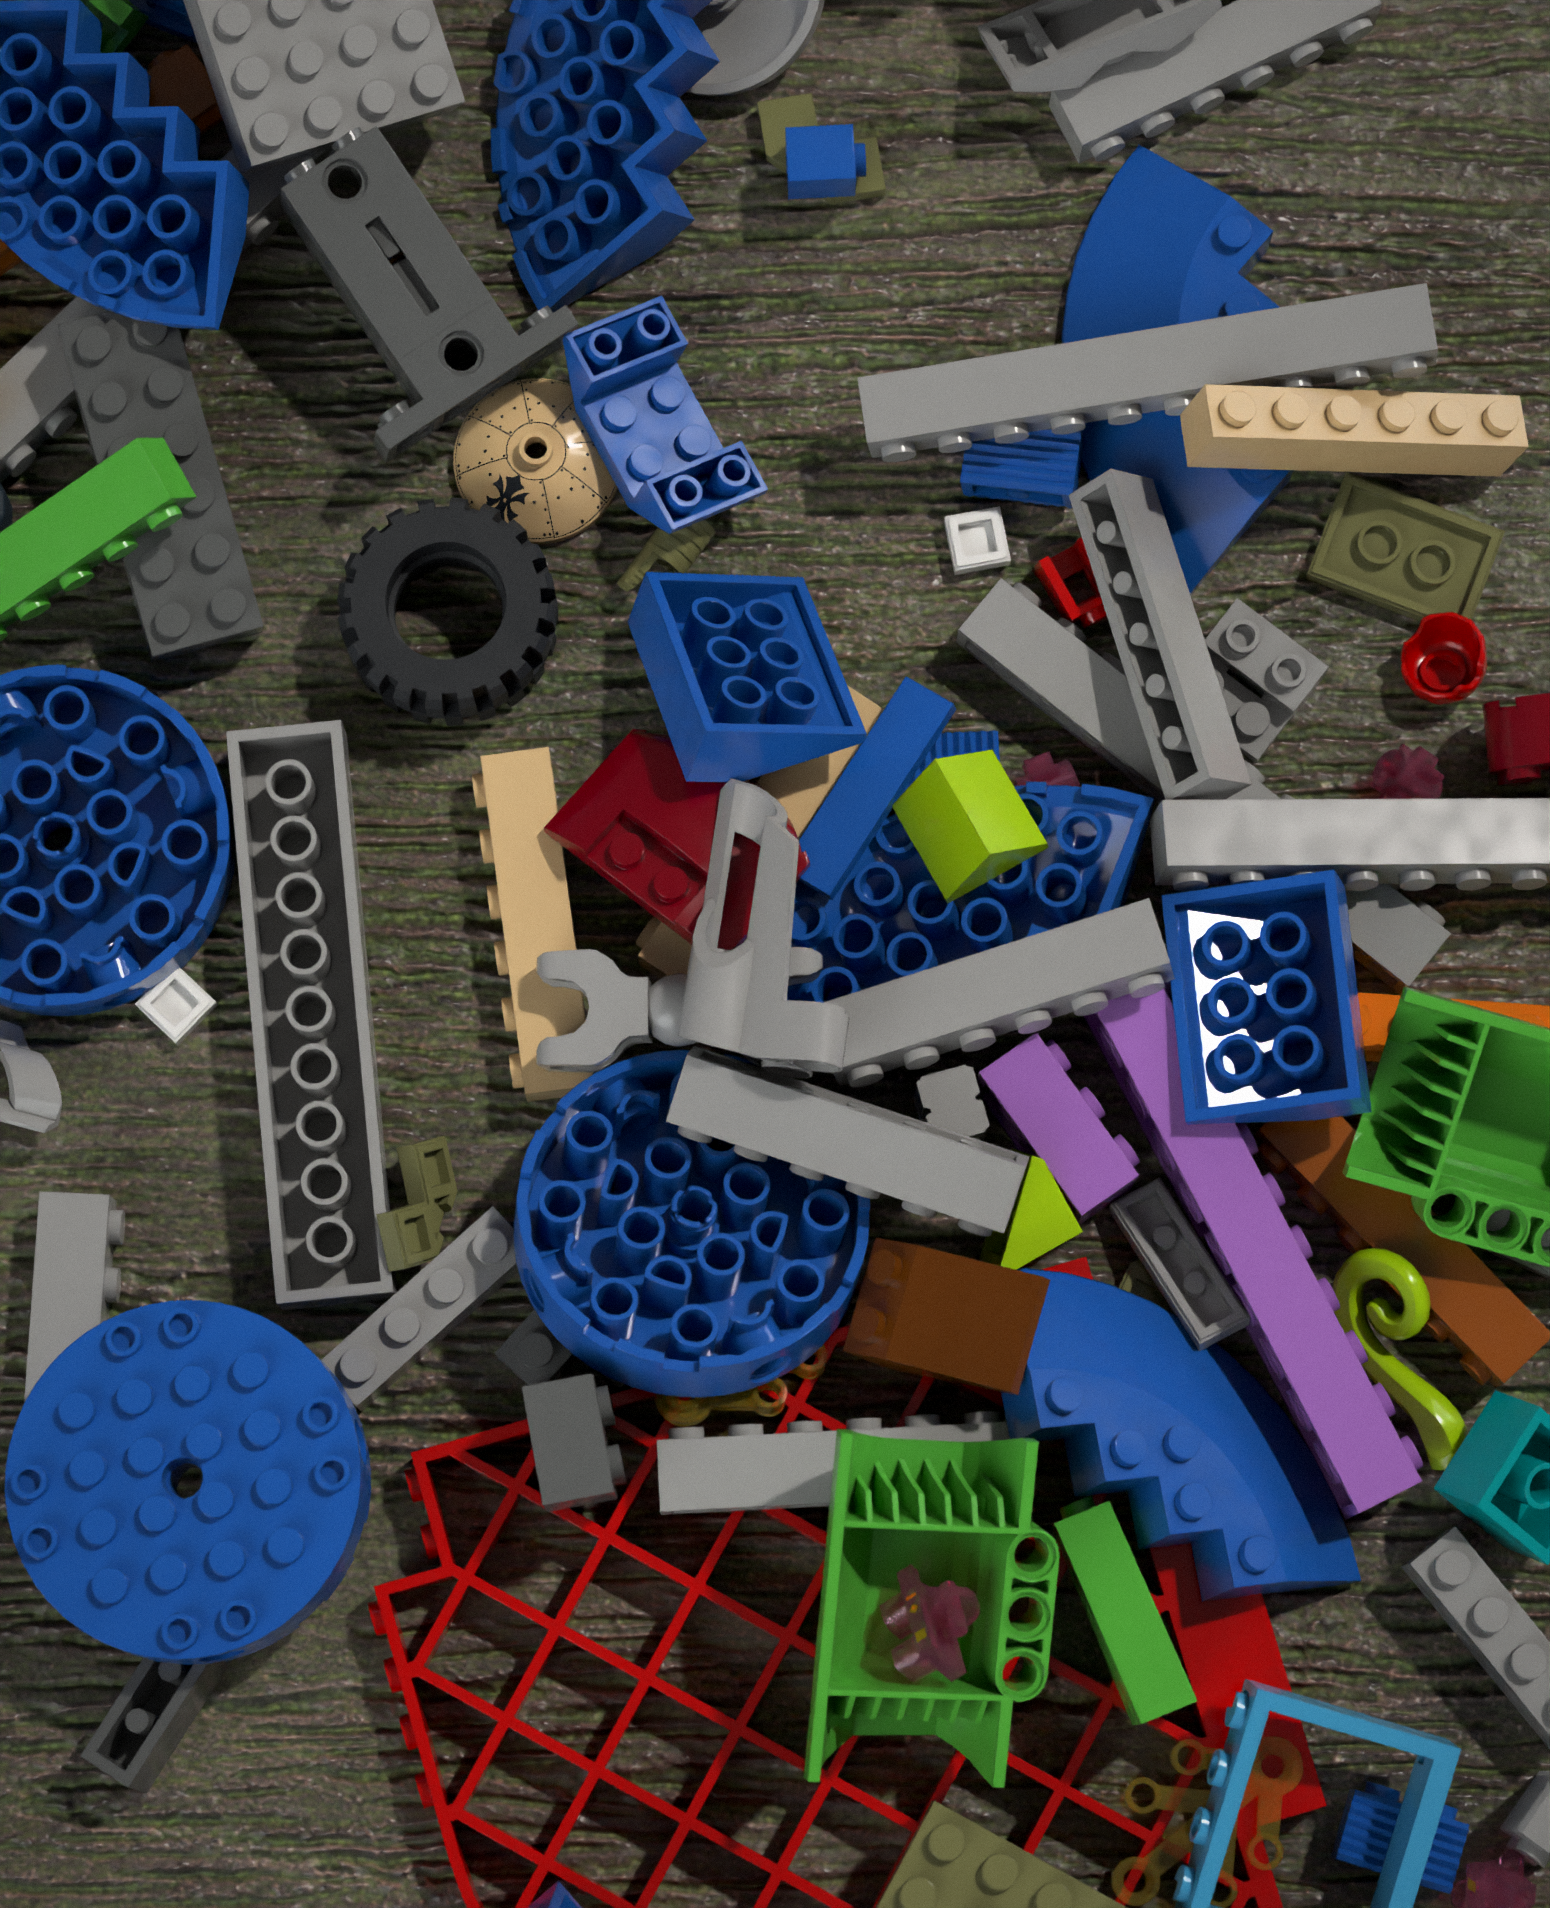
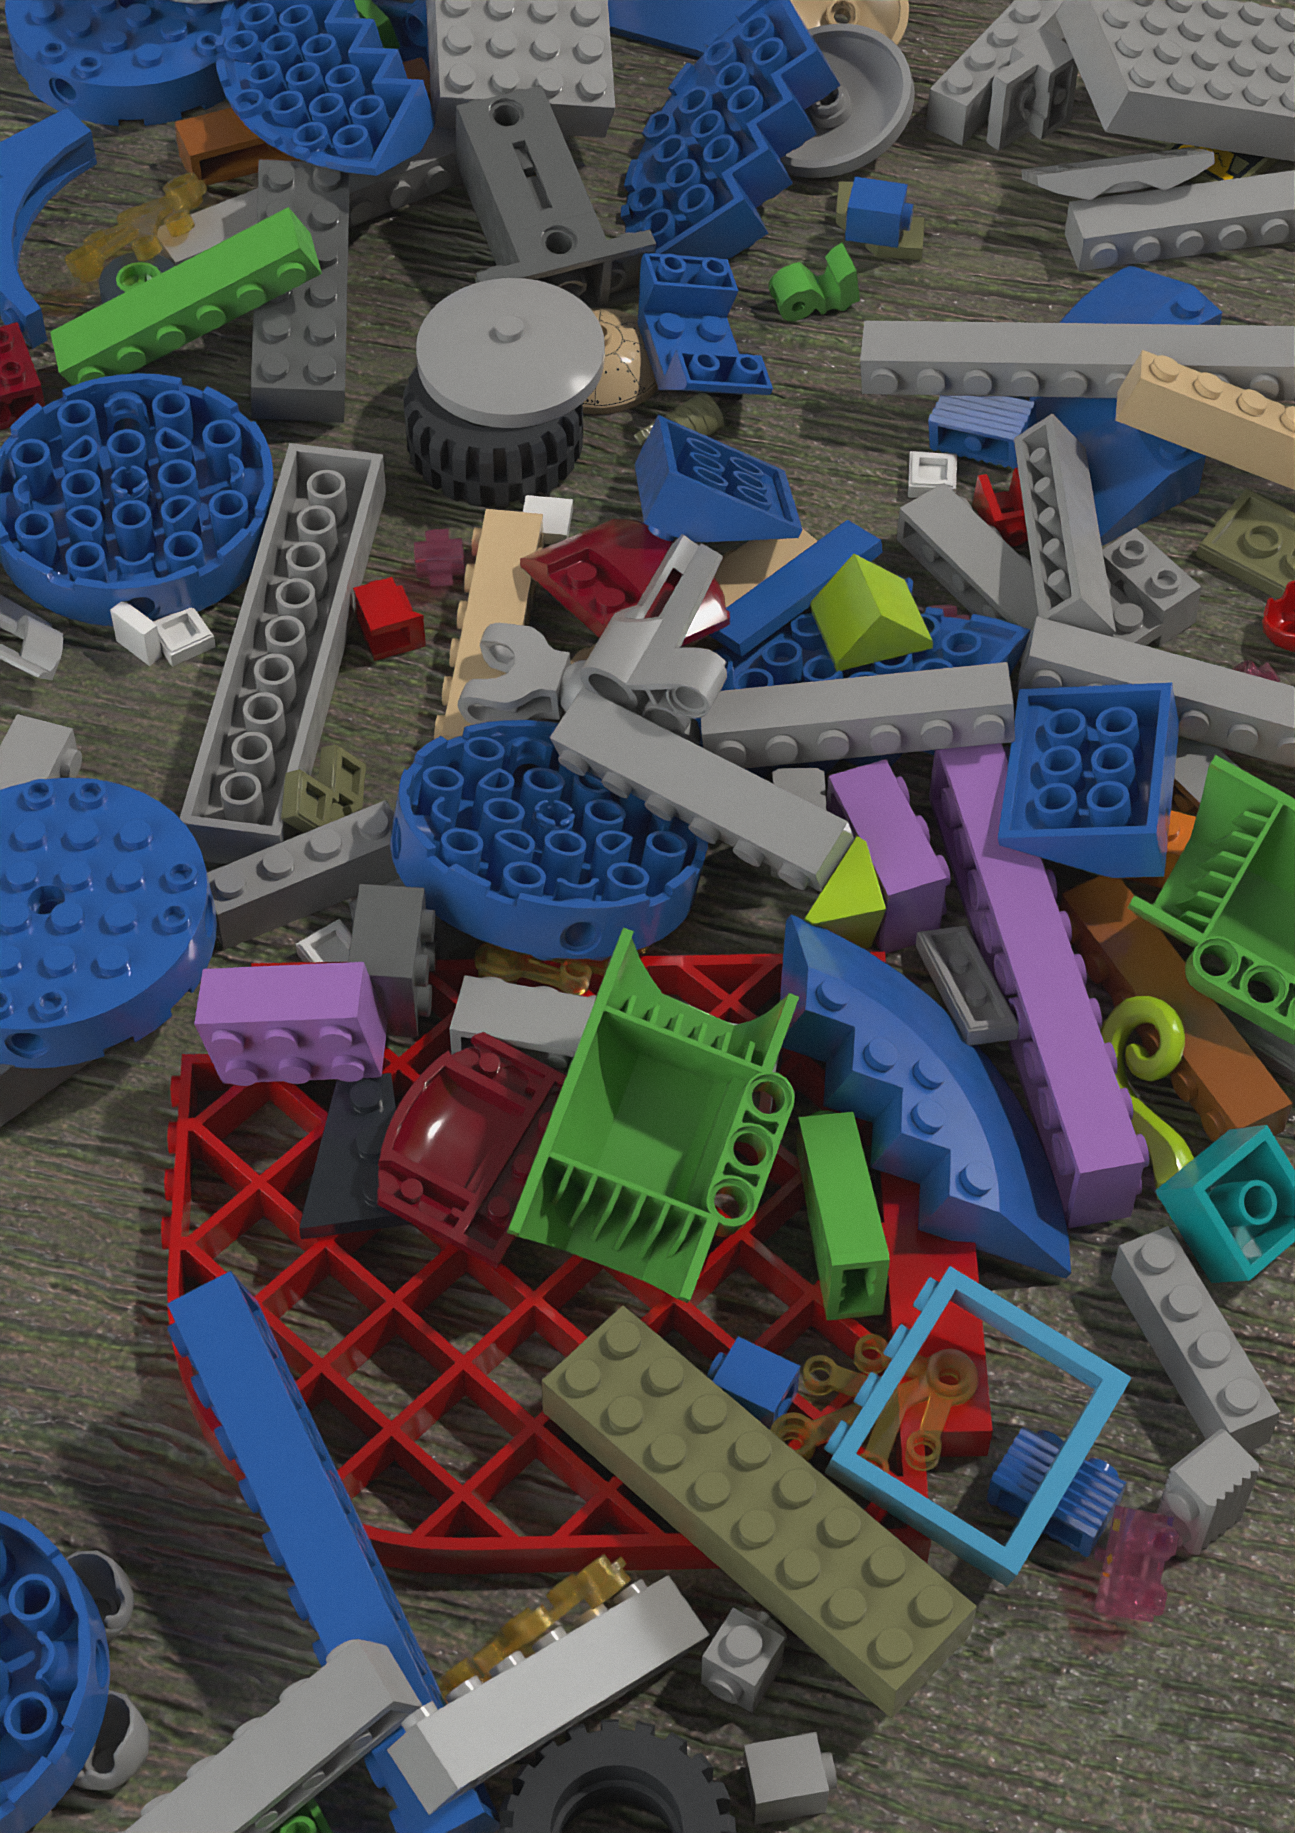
camera: 15 degrees right, 25 degrees down
(128, 1024) = (136, 632): none -> white tile
(406, 927) = (387, 619): none -> red window
(442, 828) = (439, 557): none -> clear pink gear
(452, 542) = (510, 352): none -> light grey dish
(483, 1390) = (326, 945): none -> white tile
(494, 1560) = (291, 1023): none -> medium lavender brick
(547, 724) = (556, 516): none -> white tile
(605, 1672) = (347, 1168): none -> black wing
(729, 1638) = (468, 1144): none -> dark red slope
(764, 293) = (801, 291): none -> bright green leg
(935, 1619) = (659, 1146): clear pink hips -> none
(946, 1316) = (743, 933): reddish brown slope -> none
(1080, 1835) = (756, 1380): none -> blue brick

